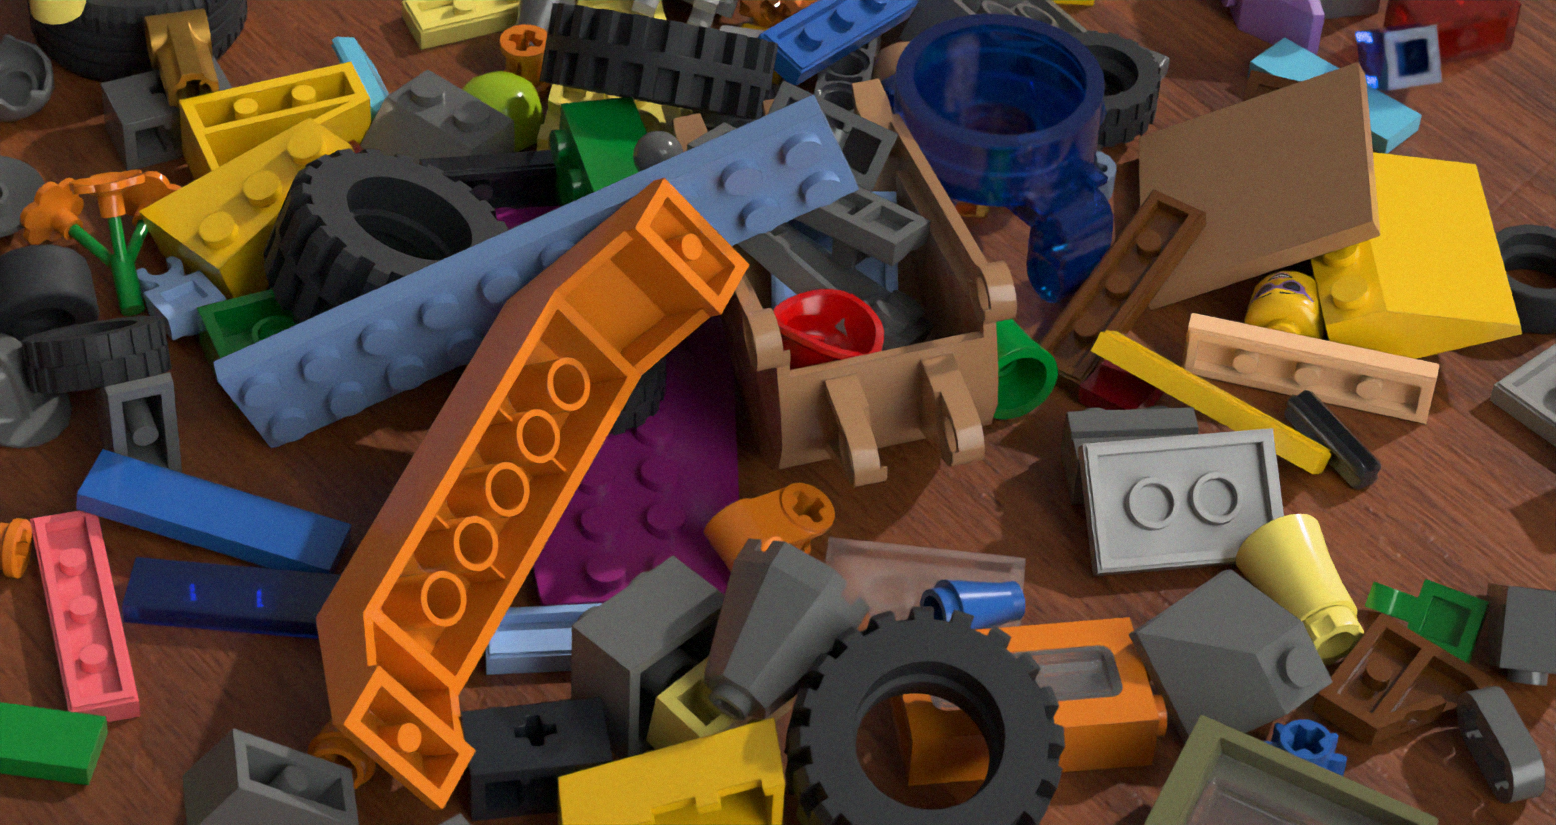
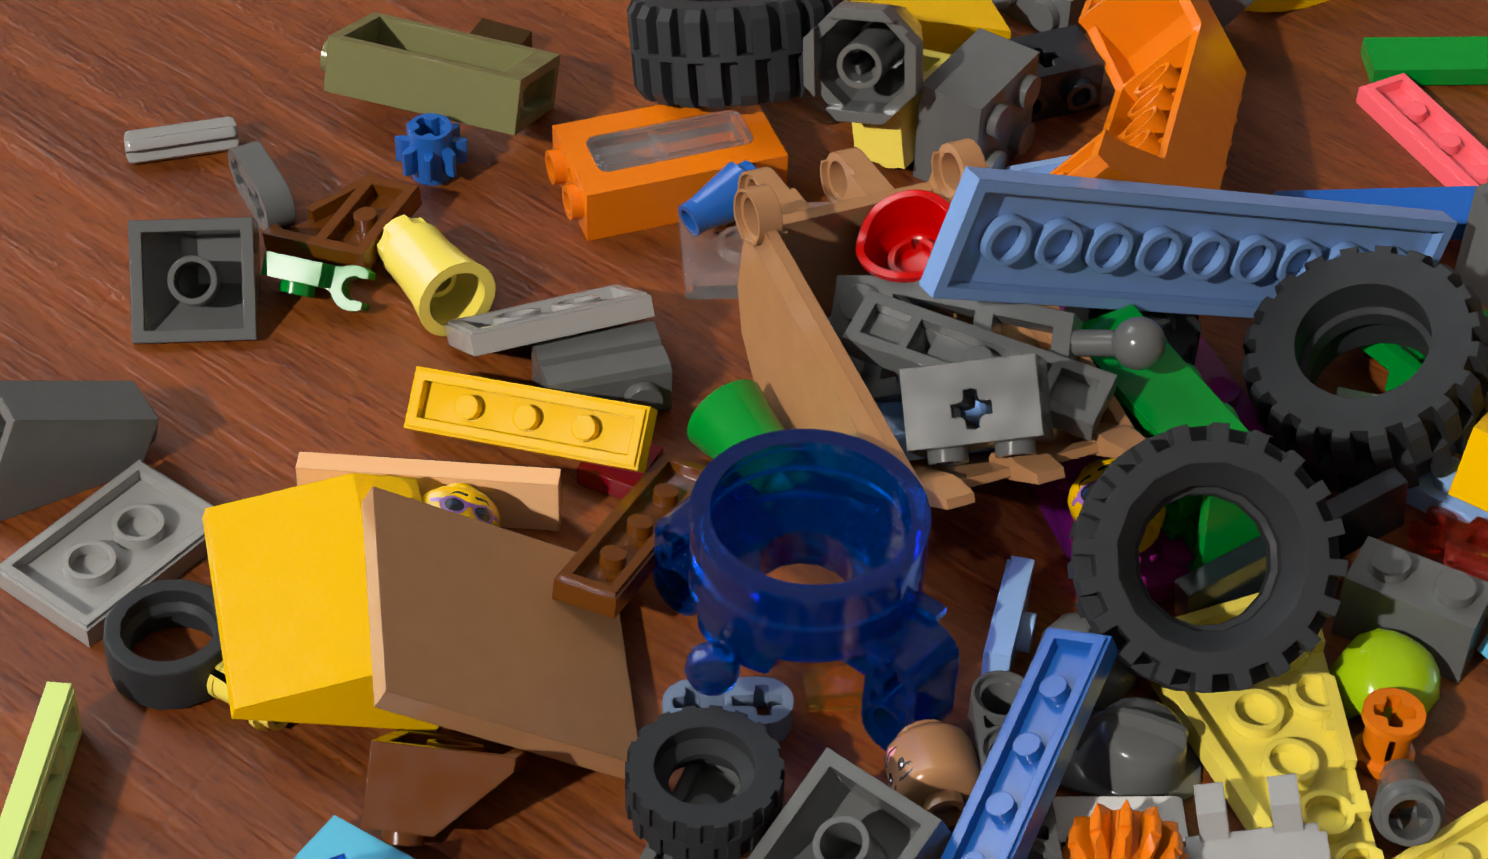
camera: 170 degrees right, 0 degrees up
(226, 597) = (1328, 169): clear blue tile -> none
(1229, 657) = (486, 178): dark grey slope -> none
(1348, 453) = (395, 432): black axle -> none

